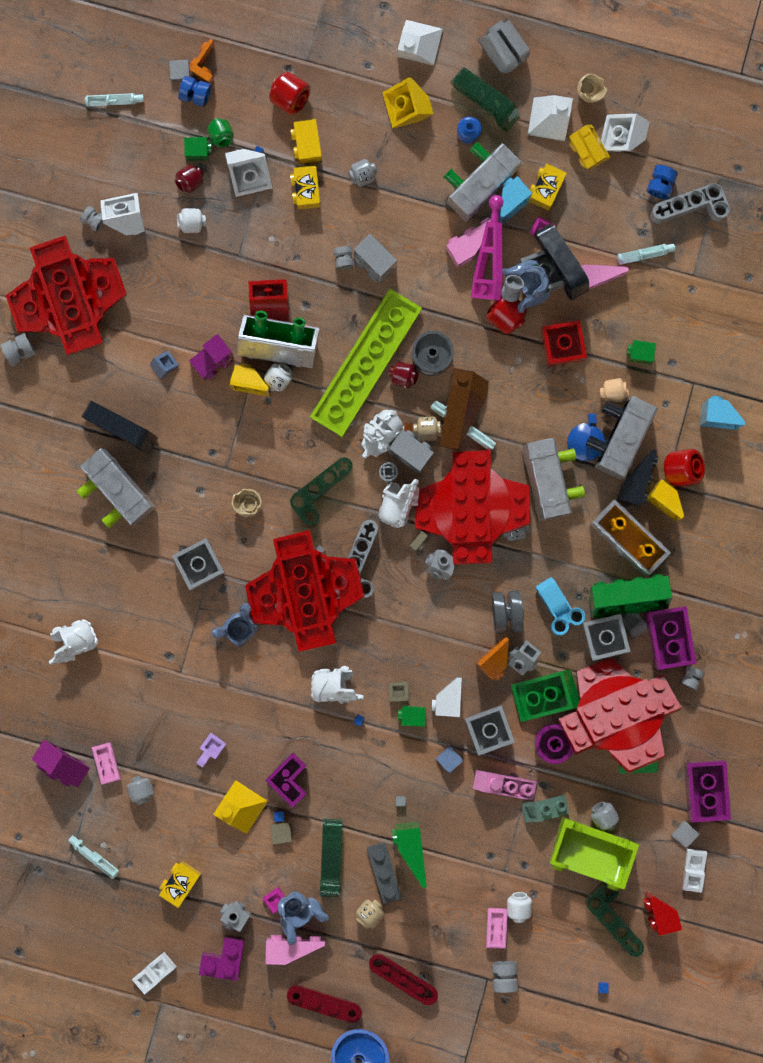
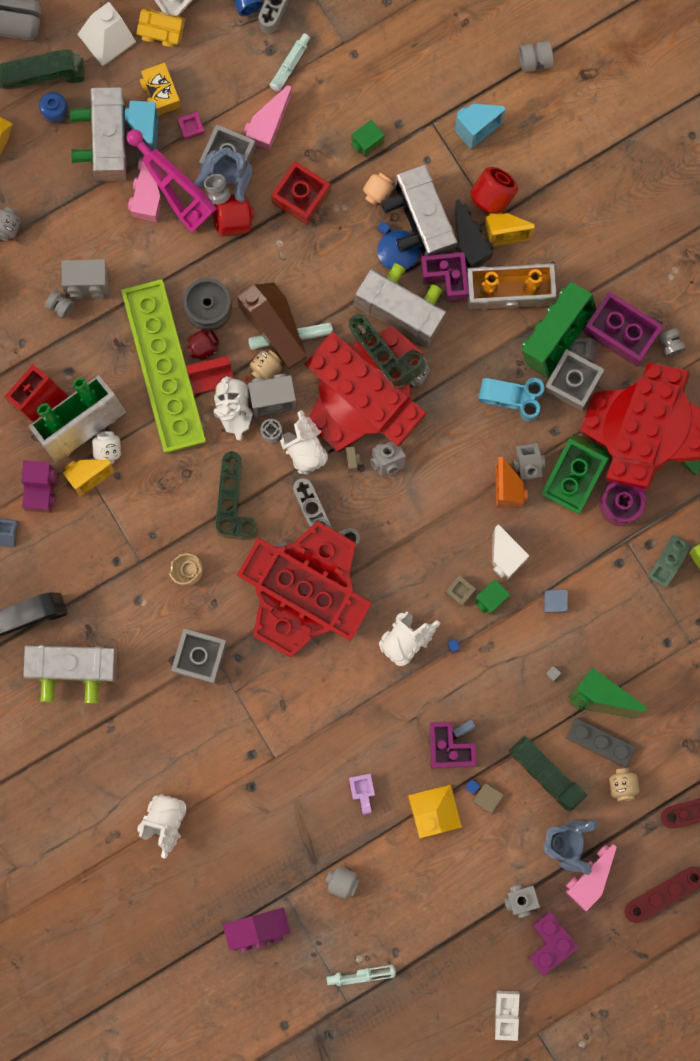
camera: 40 degrees left, 5 degrees down
(106, 763) = (292, 891): bright pink plate -> none
(179, 884) = (451, 922): yellow brick -> none
(233, 623) = (277, 667): sand blue hair -> none
(273, 898) = (537, 856): dark pink tile -> none
(305, 775) = (463, 729): none -> sand blue tile
(388, 398) = (207, 374): none -> red panel
(489, 730) = (562, 545): light grey brick -> none
(504, 785) = (619, 575): bright pink slope -> none
(505, 494) = (381, 349): none -> beam
(510, 611) = (478, 439): dark grey wheel -> none
(574, 277) = (236, 128): black beam -> none
(603, 489) = (447, 269): none -> magenta brick

